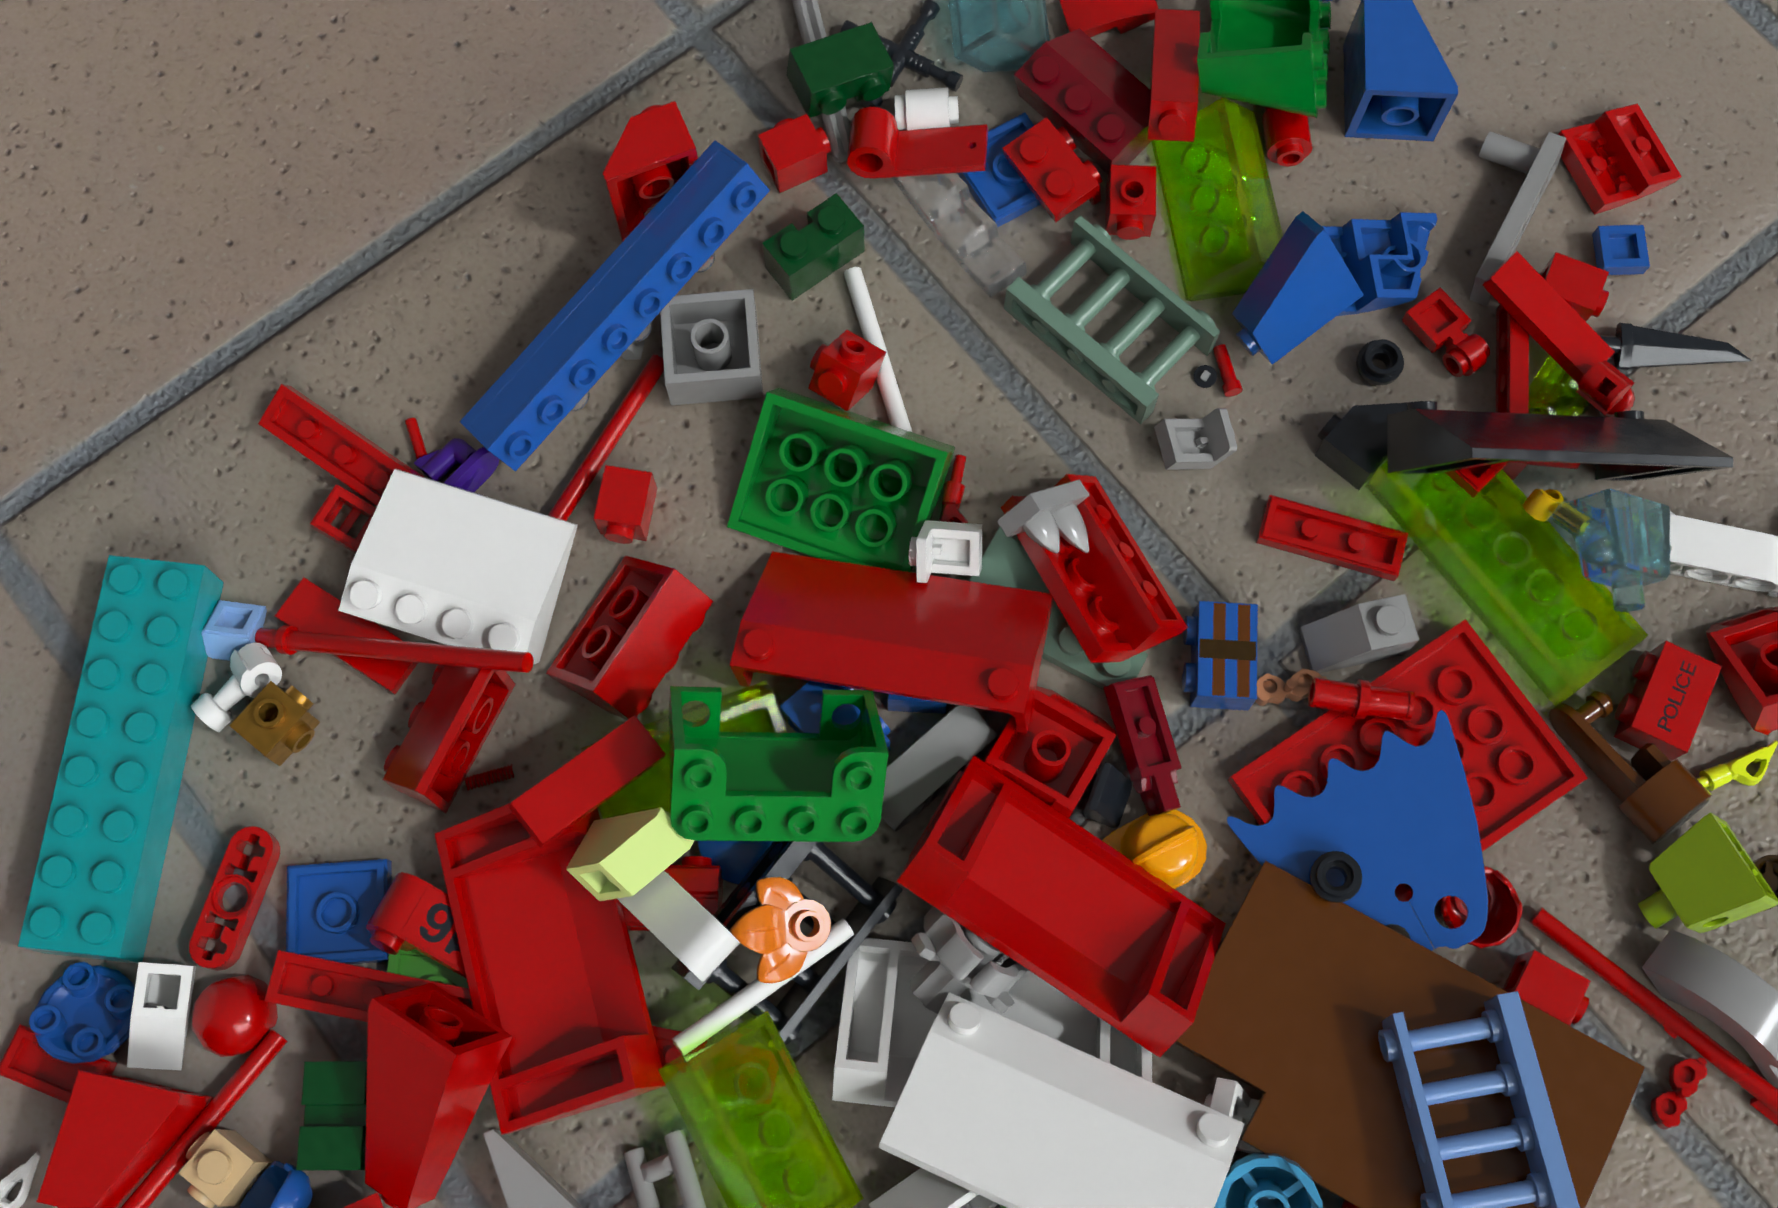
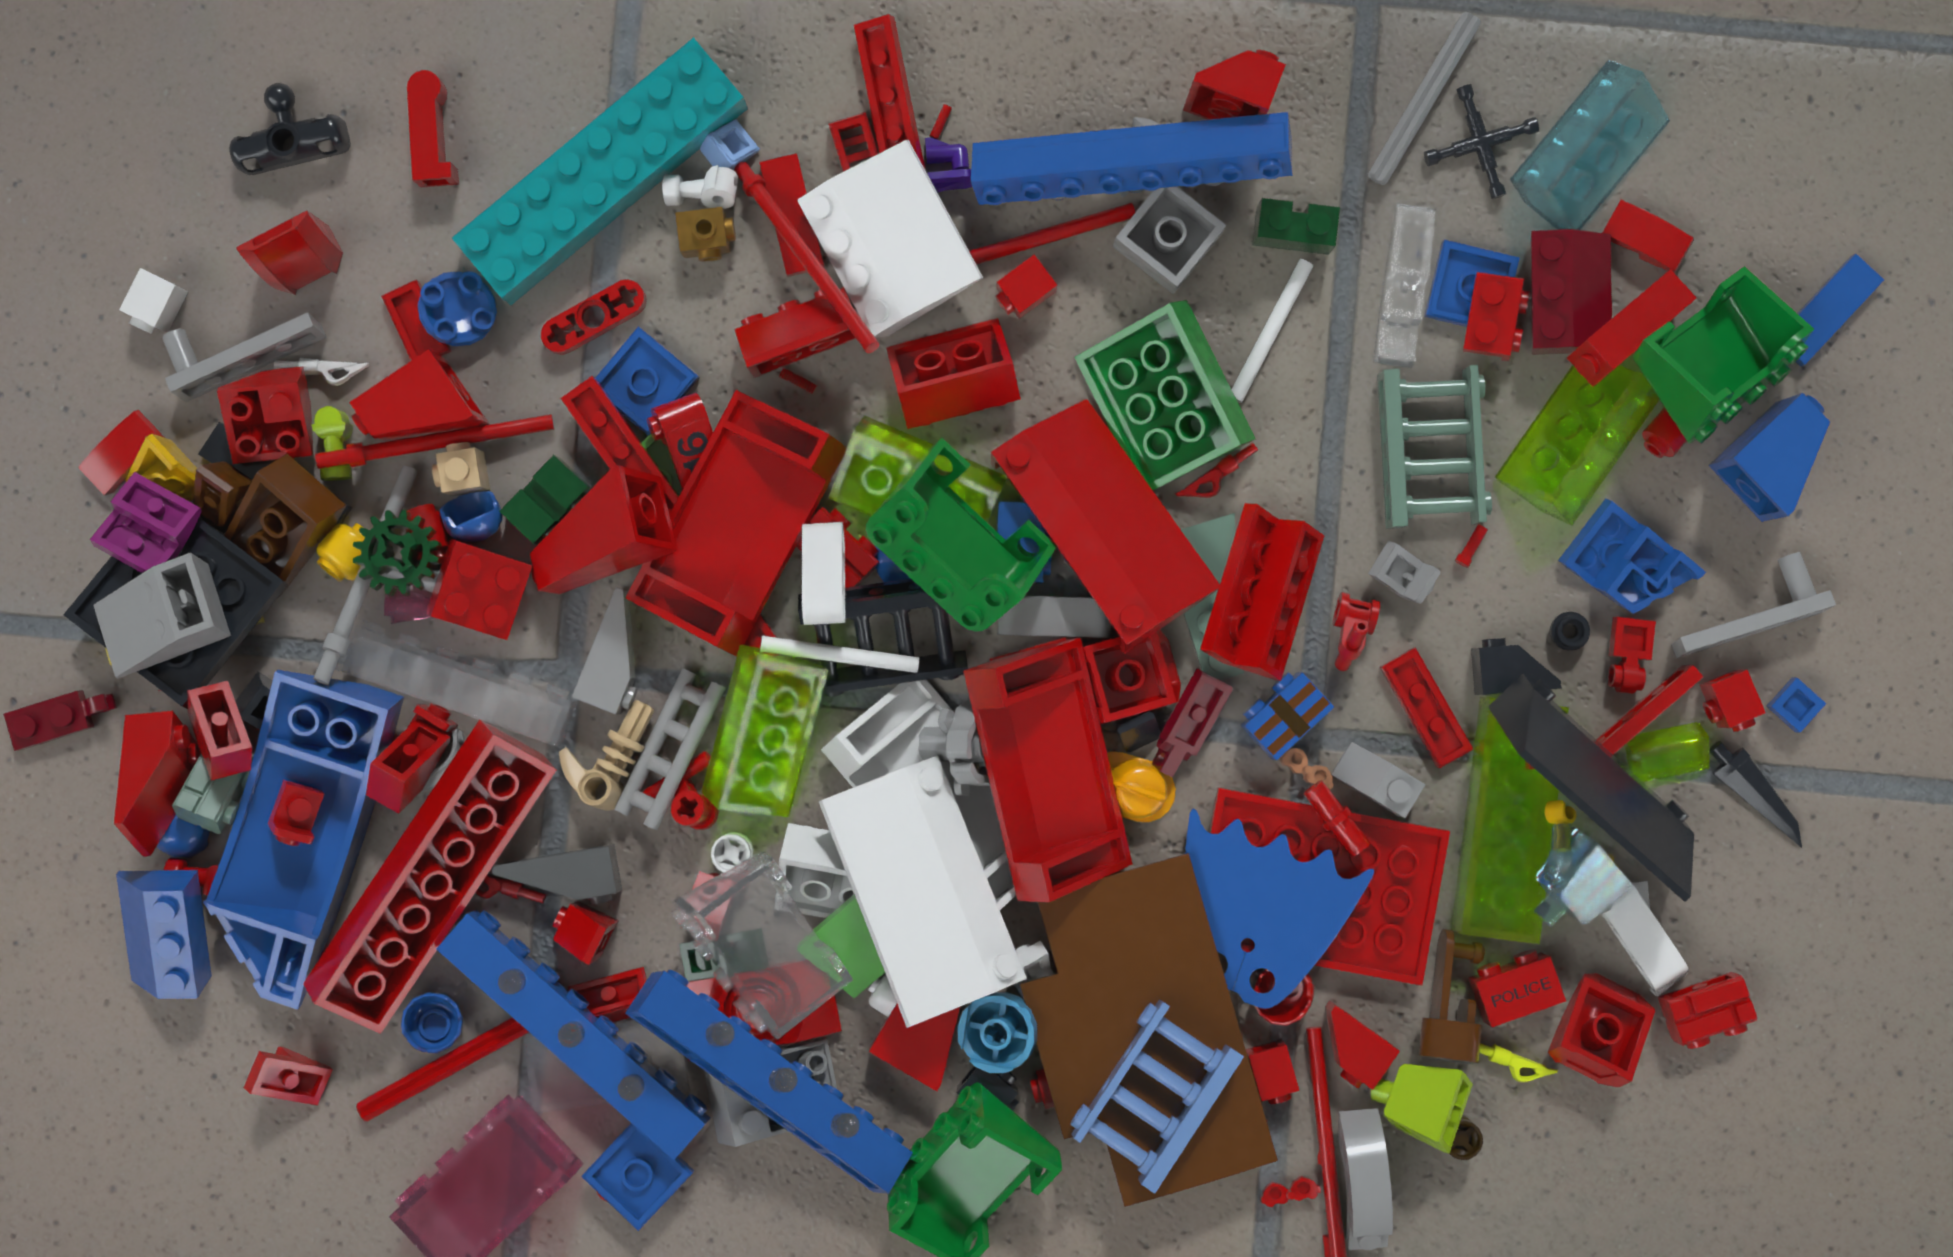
camera: 45 degrees right, 15 degrees up
(160, 1016) = (498, 350): white slope -> none
(233, 1015) = (537, 386): red hair -> none
(587, 781) = (845, 448): red tile -> none
(626, 853) = (829, 510): yellowish green slope -> none
(776, 931) = (874, 630): orange plate -> none
(794, 152) = (1346, 147): red brick -> none
(838, 69) = (1425, 122): dark green brick -> none
(845, 369) = (1236, 327): red brick -> none
(885, 152) = (1404, 205): red door -> none
(926, 109) = (1456, 198): white brick -> none
(946, 549) = (1186, 499): white bracket -> none
(1048, 515) = (1263, 538): light grey tile -> none
(1130, 201) = (1522, 382): red brick -> none
(1201, 519) = (1356, 621): none -> red piece
(1205, 376) = (1455, 536): black piece -> none
(1295, 291) = (1554, 542): blue slope -> none
(1350, 870) = (1221, 912): black plate -> none
(1547, 317) = (1694, 705): red tile -> none
(1594, 891) = (1358, 1048): none -> red slope
(1607, 389) = (1680, 781): red leg -> none
(1617, 159) = (1862, 644): red slope -> none

